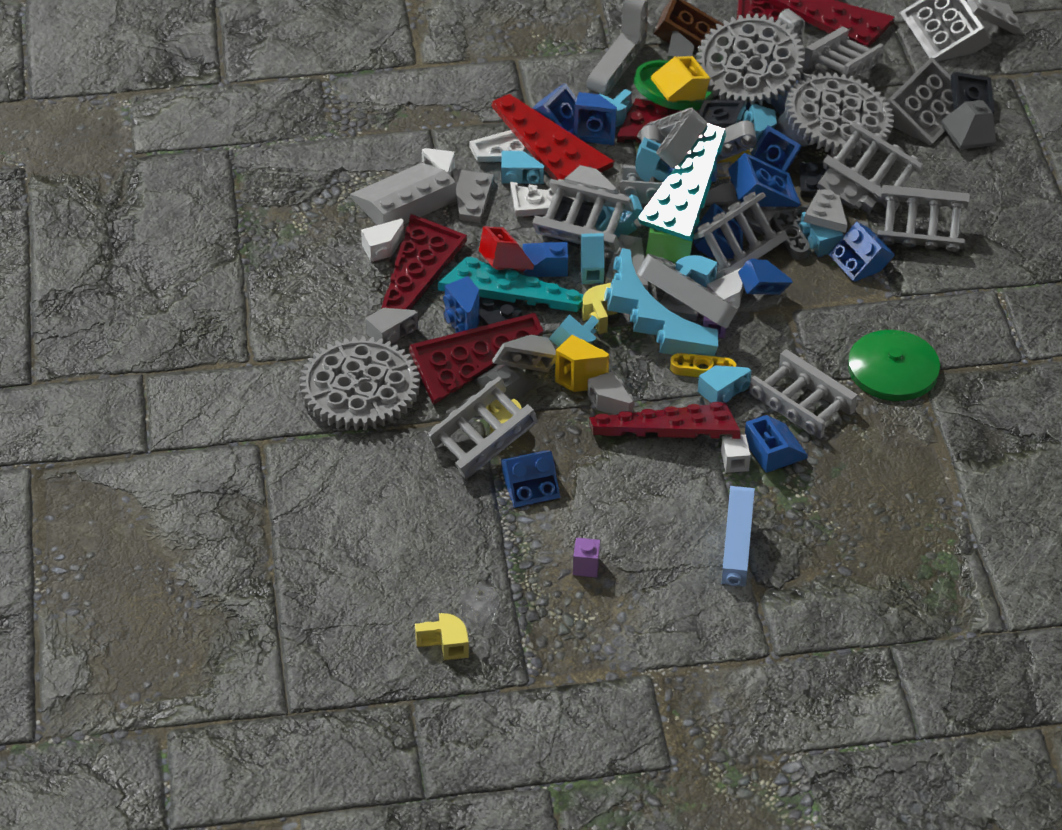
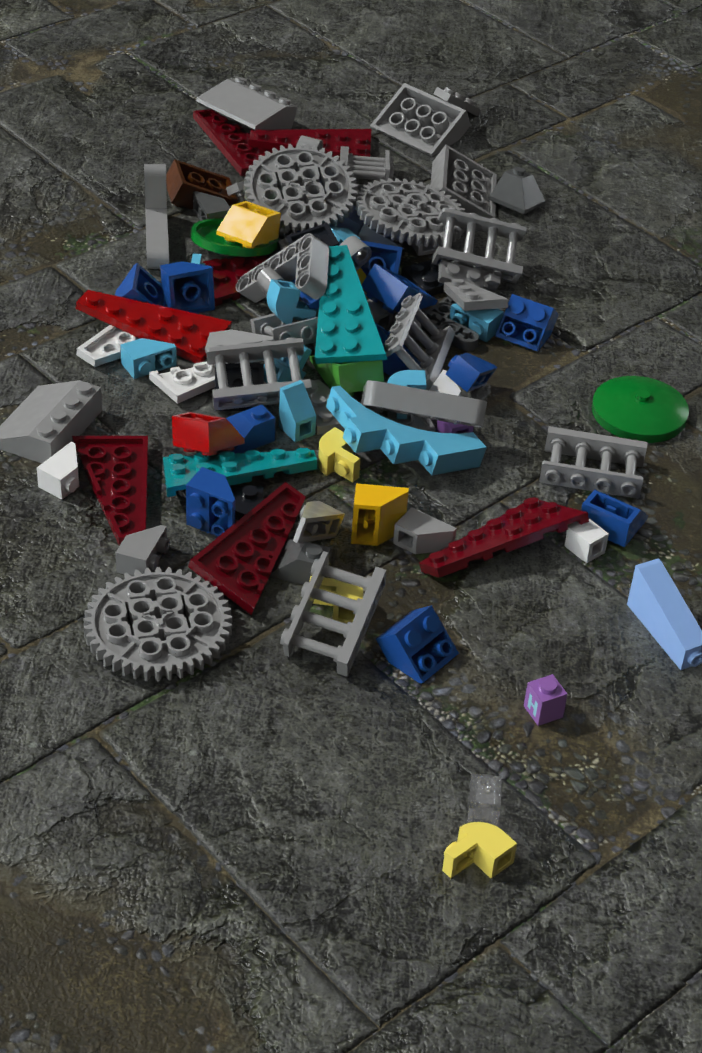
camera: 35 degrees left, 5 degrees down
(440, 159) = (57, 374): white slope -> none
(472, 193) = (118, 399): light grey wing -> none
(573, 327) = (339, 487): medium azure brick -> none
(687, 359) = (463, 477): yellow beam -> none
(723, 382) = (515, 480): medium azure slope -> none
(914, 198) = (558, 254): light grey fence -> none
(971, 88) = (492, 164): black plate -> none

